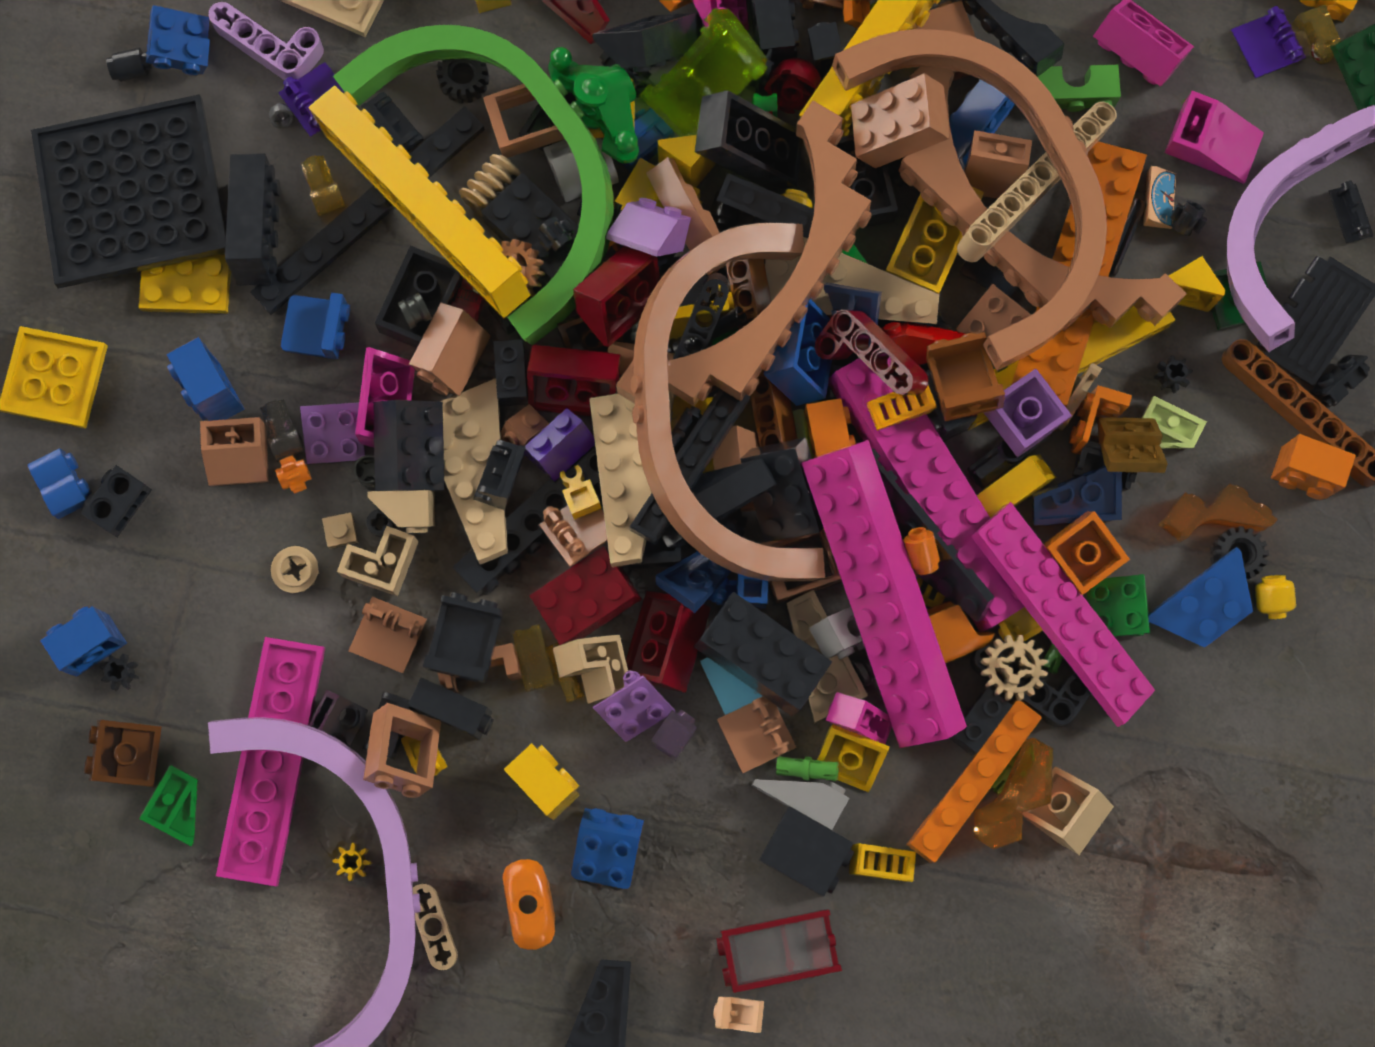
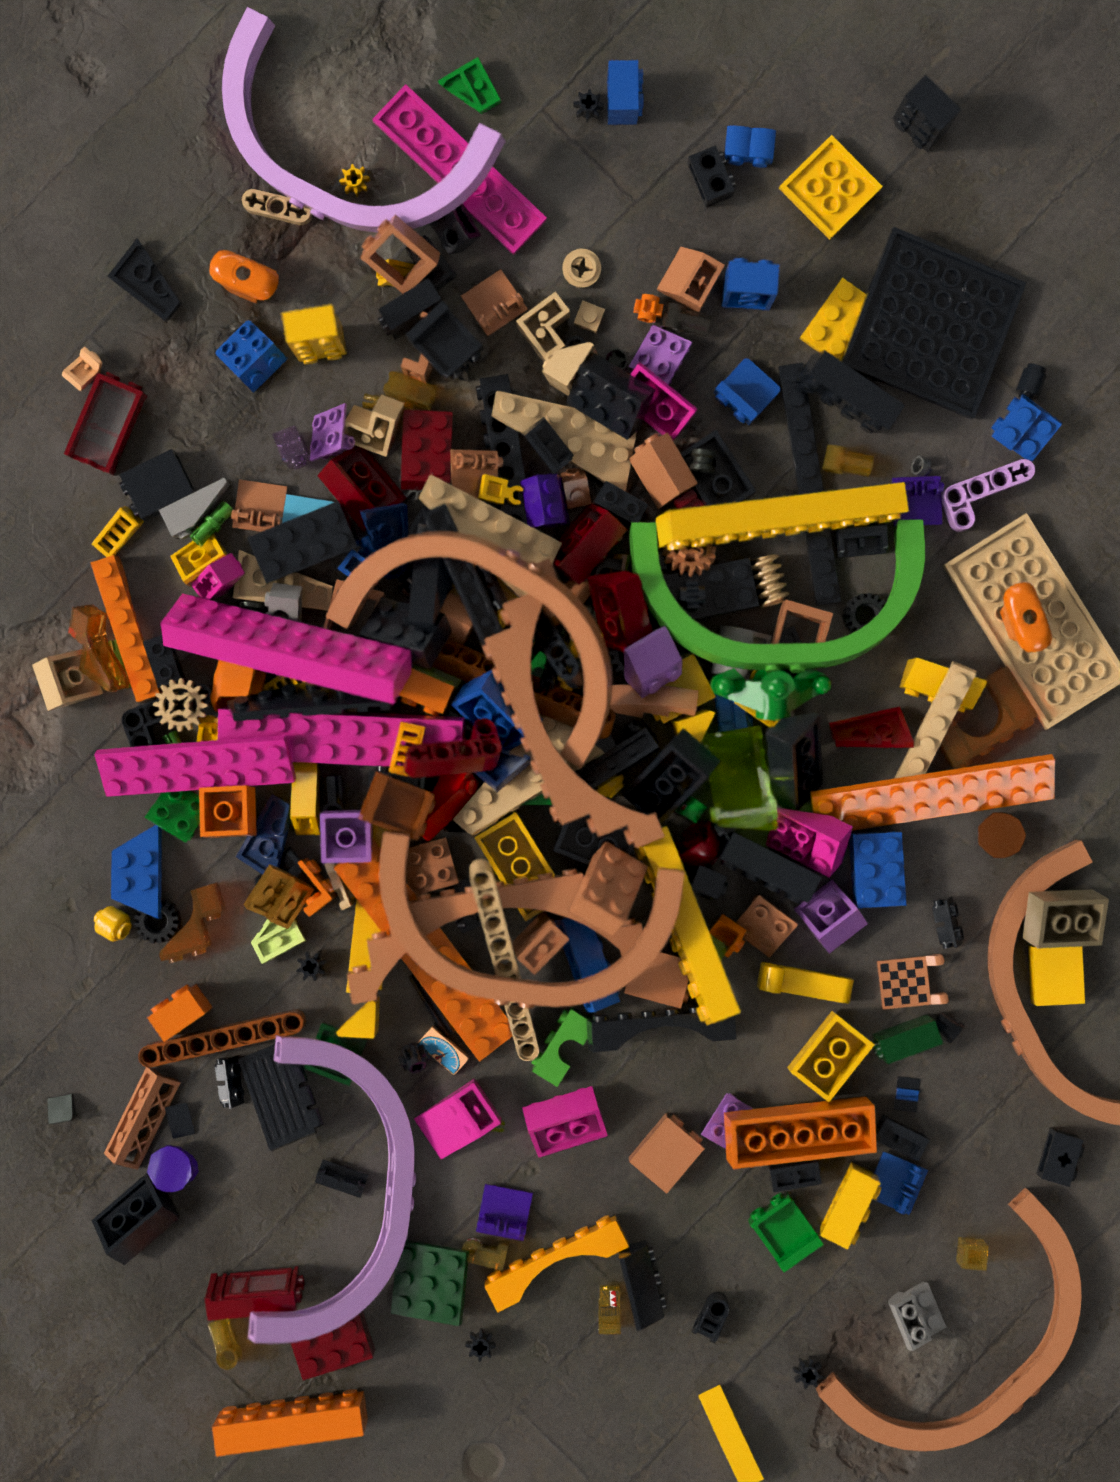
camera: 130 degrees right, 10 degrees up
(123, 753) = (530, 73): reddish brown plate -> none
(922, 550) = (296, 692): orange brick -> none

